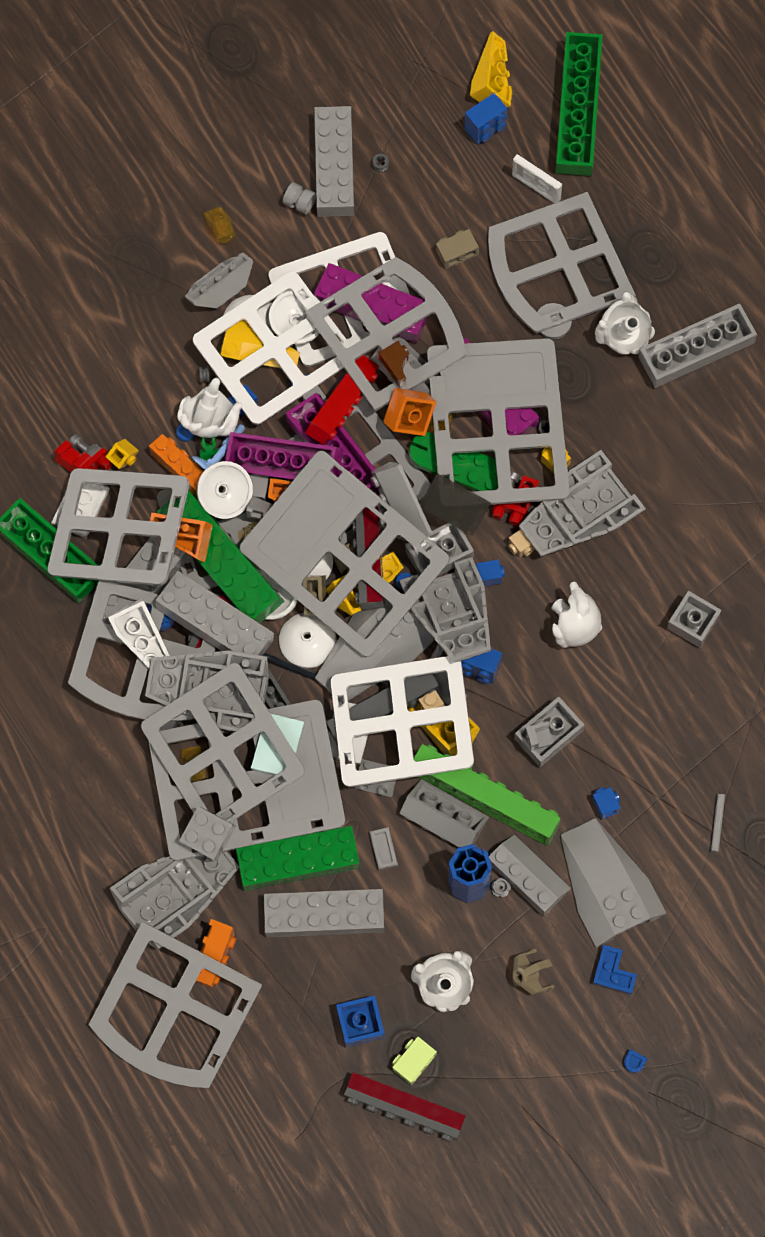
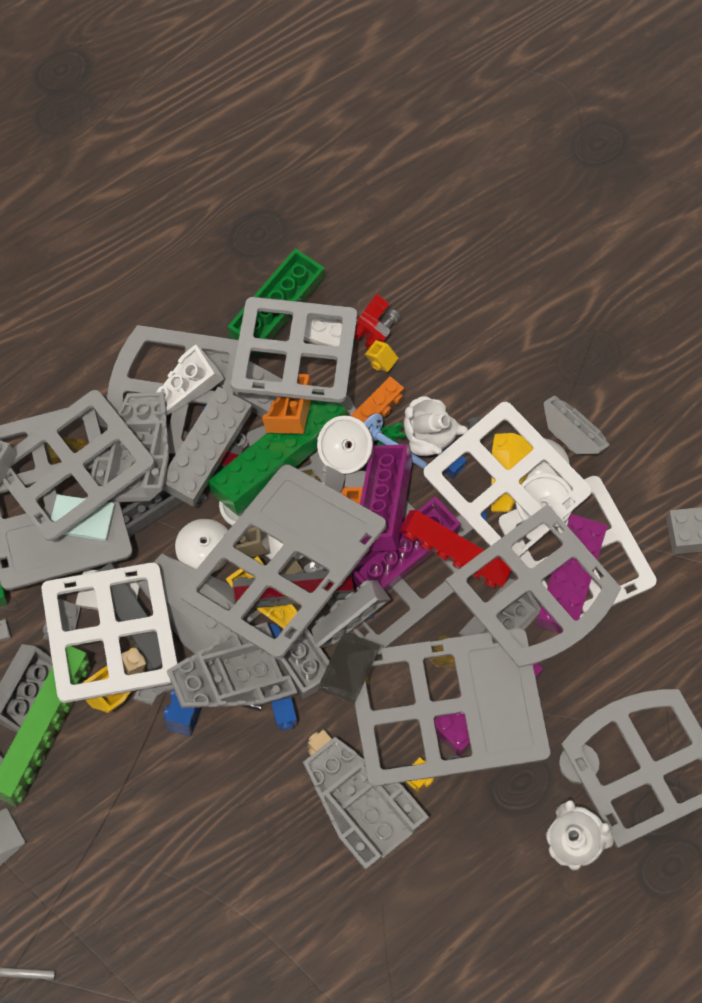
camera: 80 degrees right, 5 degrees down
(219, 225) = (640, 423): clear yellow slope -> none
(290, 666) = (175, 530): black bar -> none
(299, 198) = (680, 494): light grey wheel -> none
(394, 359) = (500, 592): reddish brown arch -> none
(409, 411) = (447, 614): orange brick -> none
(457, 248) = (647, 656): dark tan brick -> none
(470, 469) = (396, 683): green plate -> none
(517, 510) = (384, 745): red hips -> none
(539, 735) = (100, 770): light grey panel -> none
(563, 729) = (112, 786): light grey brick -> none
(577, 622) = (235, 807): white piece -> none
(606, 802) = (40, 851): blue brick -> none
(694, 619) = (246, 931): light grey brick -> none
(697, 345) = (566, 918): light grey brick -> none

